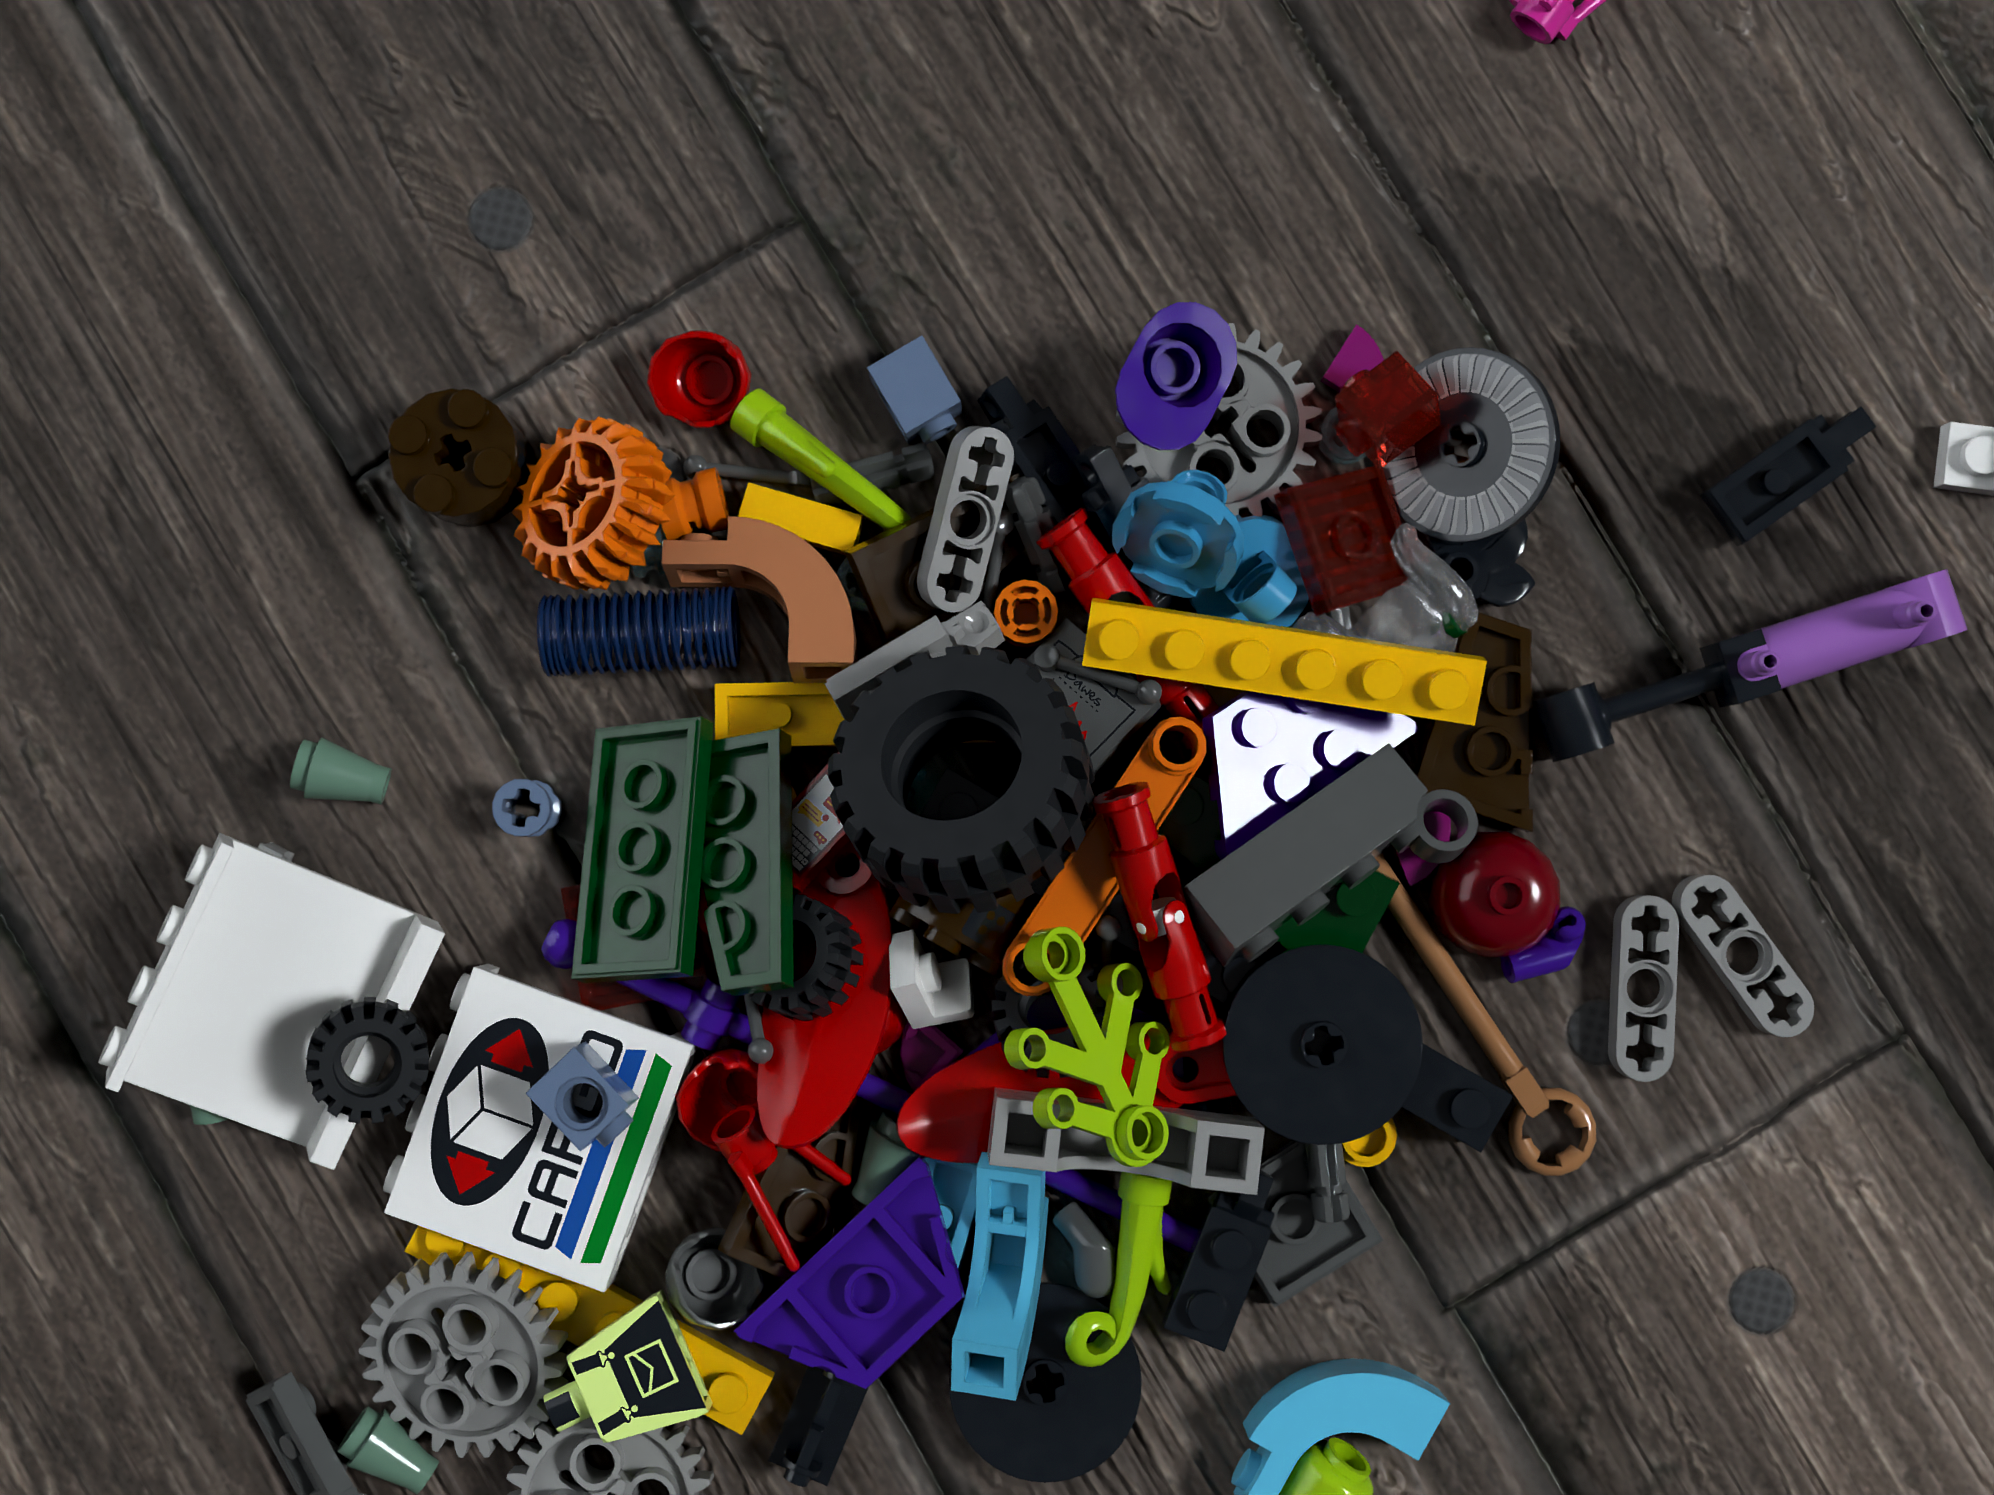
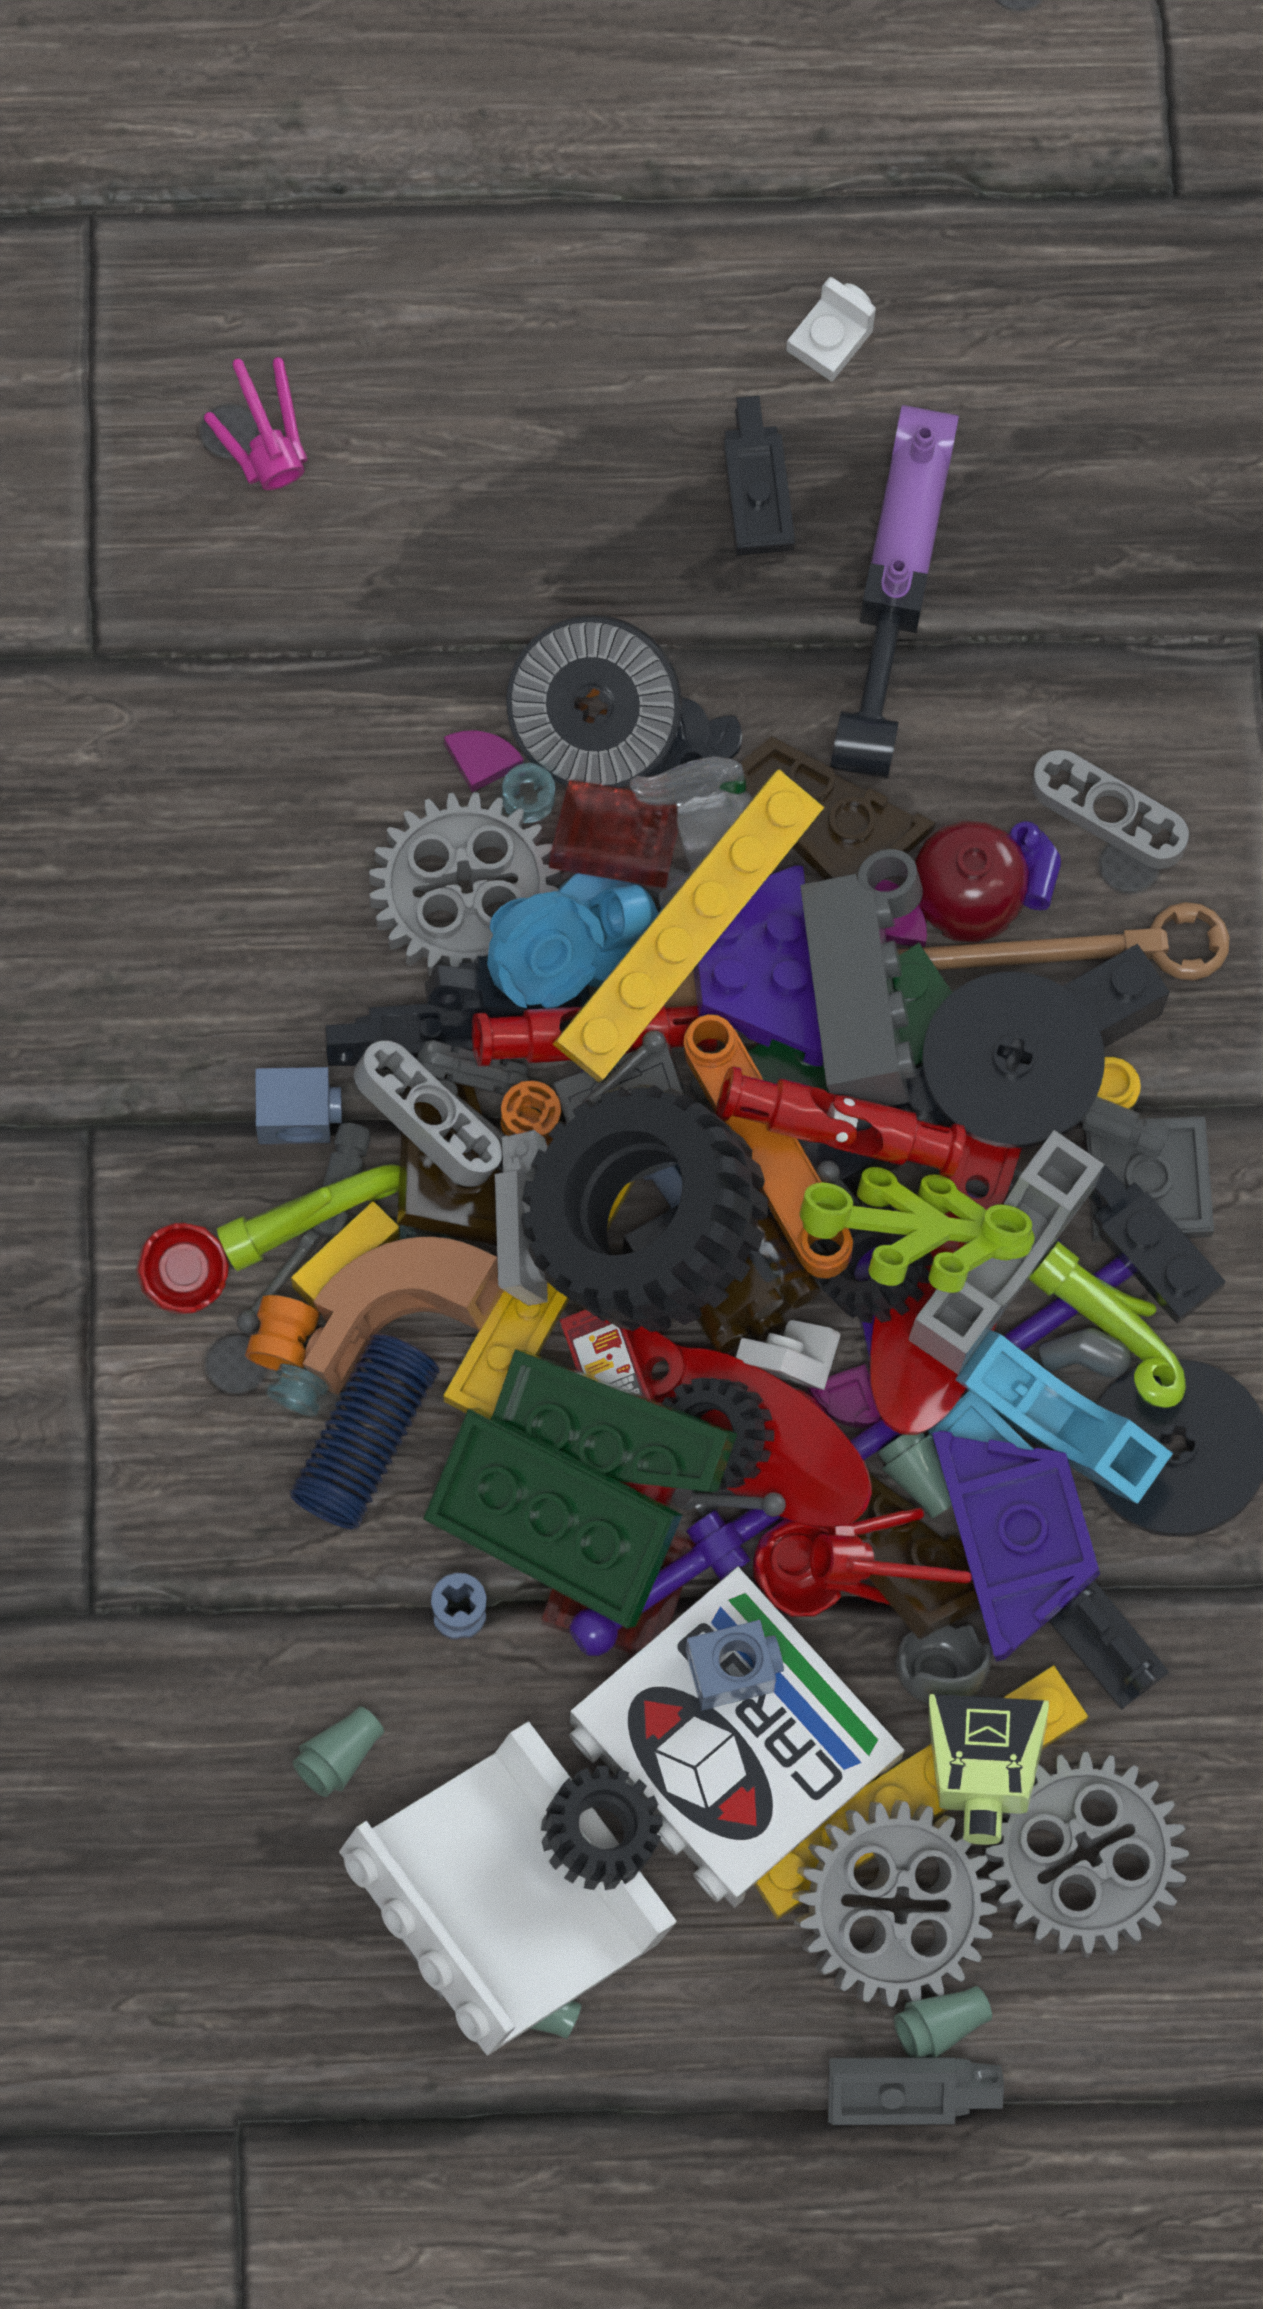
camera: 70 degrees left, 15 degrees down
(427, 443) = (107, 1475): dark brown brick -> none
(593, 504) = (268, 1394): orange gear -> none
(1176, 375) = (412, 881): dark purple piece -> none
(1386, 410) = (531, 745): clear red brick -> none
(1757, 1002) = (1169, 732): light grey beam -> none

